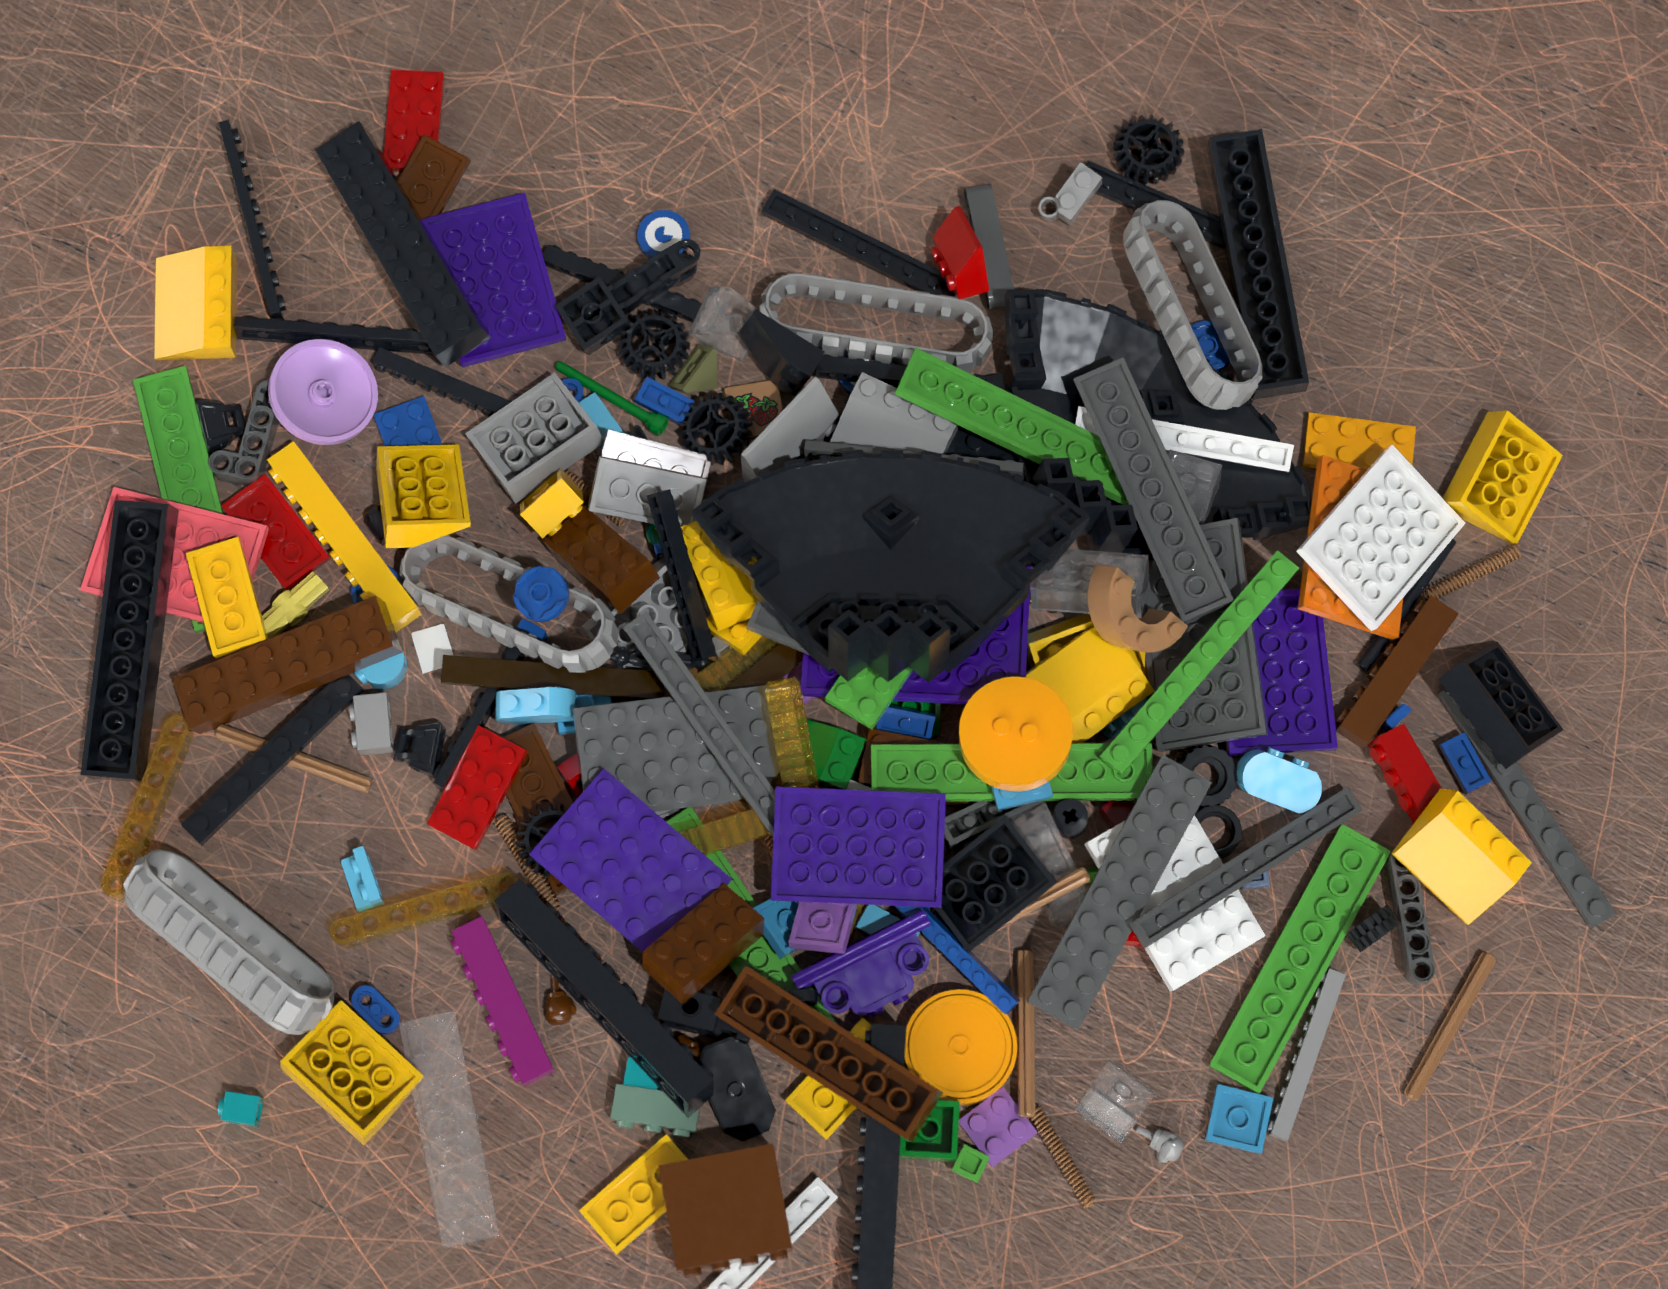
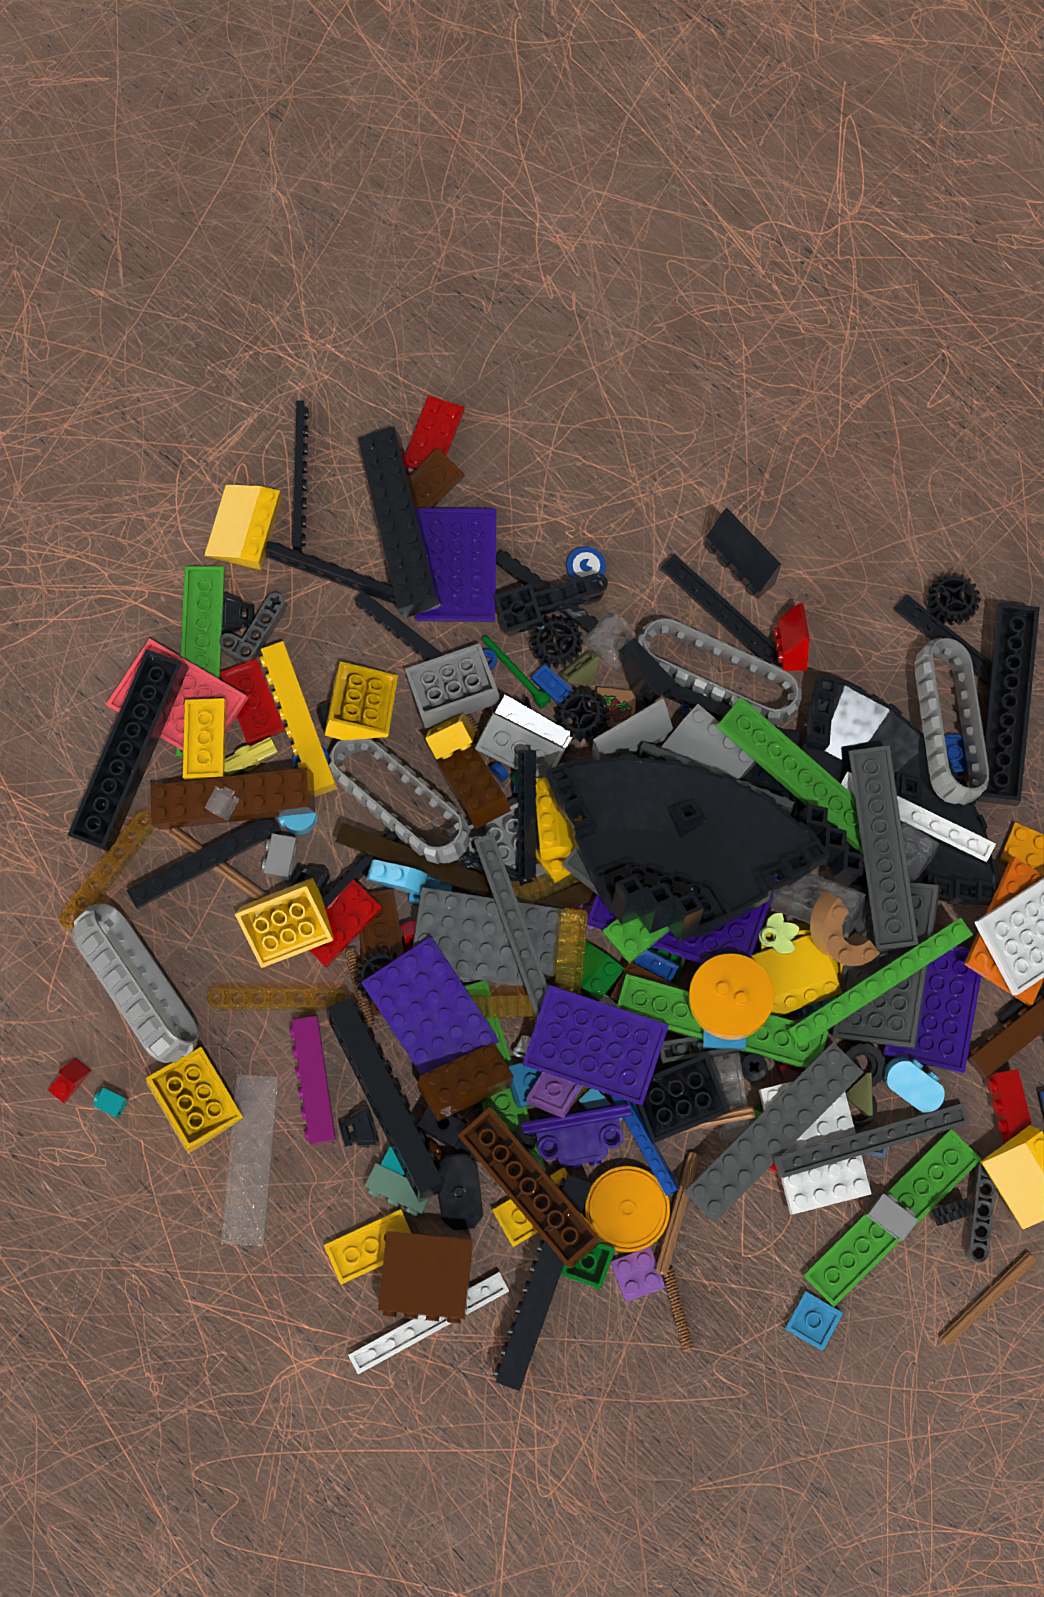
camera: 20 degrees right, 0 degrees up
(176, 1096) = (69, 1080): none -> red slope
(276, 672) = (222, 802): none -> clear brick
(323, 392) = (313, 611): lavender dish -> none
(362, 880) = (241, 965): medium azure bracket -> none
(376, 1010) = (223, 1061): blue plate -> none
(405, 807) = (285, 923): none -> yellow slope
(408, 424) = (367, 651): blue plate -> none
(431, 646) = (337, 813): white sticker -> none
(527, 627) = (408, 820): blue tile -> none
(541, 593) = (422, 799): blue tile -> none
(559, 1006) = (352, 1096): reddish brown piece -> none
(586, 1044) = (363, 1128): none -> black piece
(599, 415) = (503, 682): medium azure tile -> none
(629, 532) = (499, 771): none -> blue tile
(763, 879) = (522, 1046): none -> white piece
(863, 164) = (742, 554): none -> black slope
(970, 1164) = (610, 1295): bright green tile -> none
(986, 225) = (818, 632): dark grey beam -> none
(1054, 635) = (781, 932): none -> yellowish green plate
(1073, 195) = (888, 617): light grey hinge -> none
(1115, 1101) = (727, 1281): clear slope -> none
(1167, 1144) = (755, 1323): light grey piece -> none
(1216, 812) = (861, 1095): none -> olive slope
(1300, 956) = (892, 1217): none -> light grey brick
(1307, 1054) = (876, 1290): light grey piece -> none
(1395, 718) = (1013, 1063): blue tile -> none

